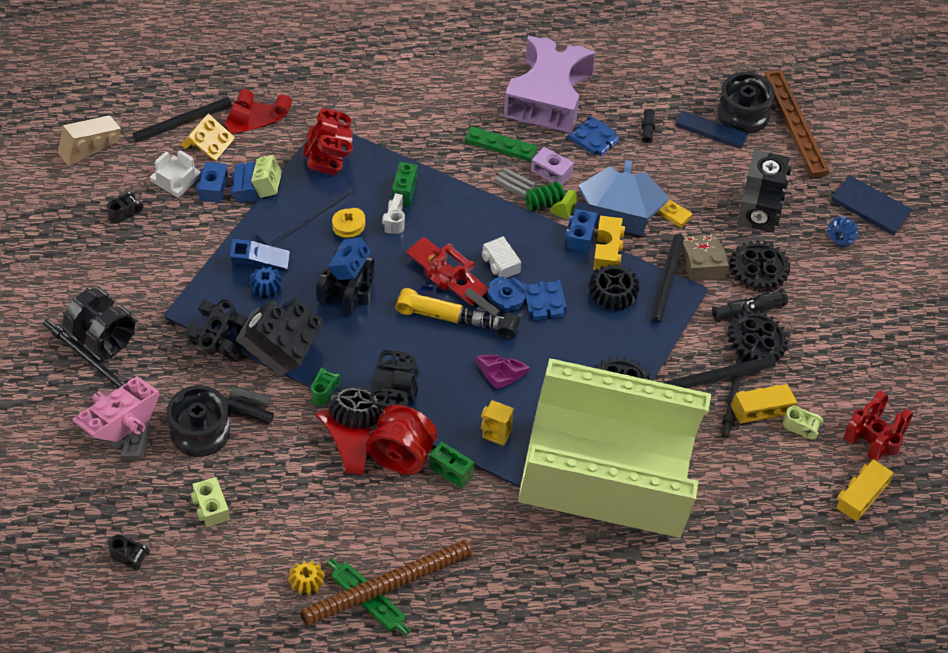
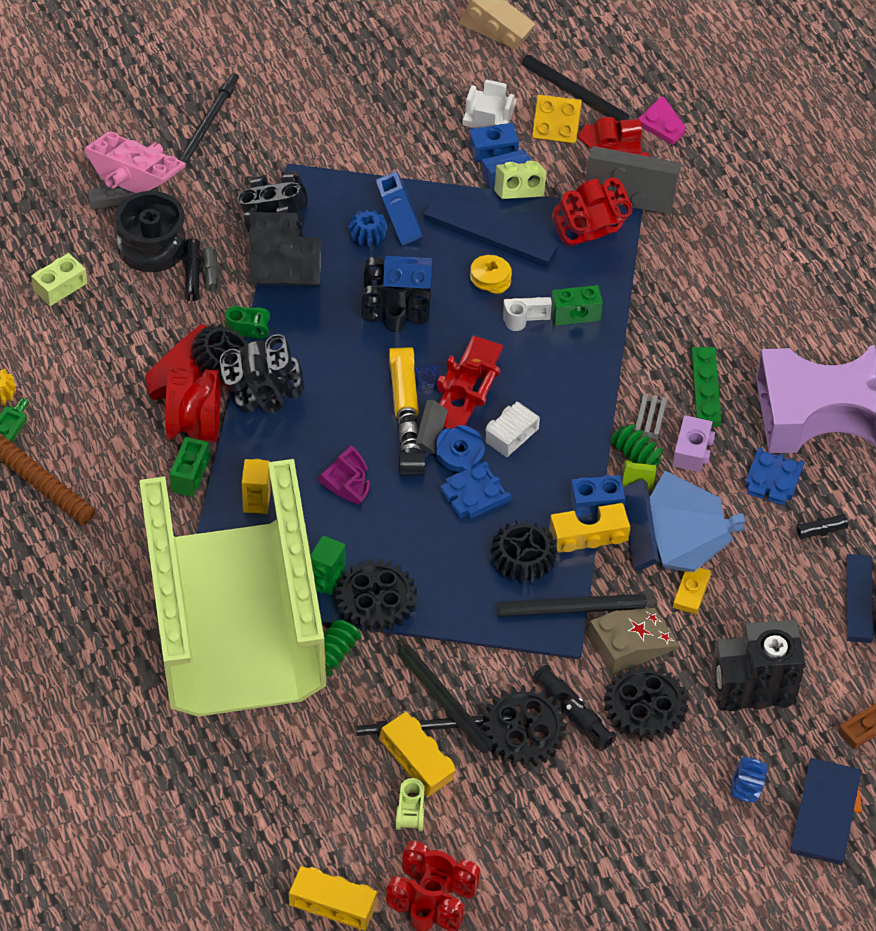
camera: 70 degrees right, 0 degrees up
(95, 319) = (236, 107): black piece -> none
(123, 207) = (416, 81): black piece -> none
(242, 80) = (663, 121): none -> dark pink wing
(300, 111) = (647, 180): none -> dark grey brick

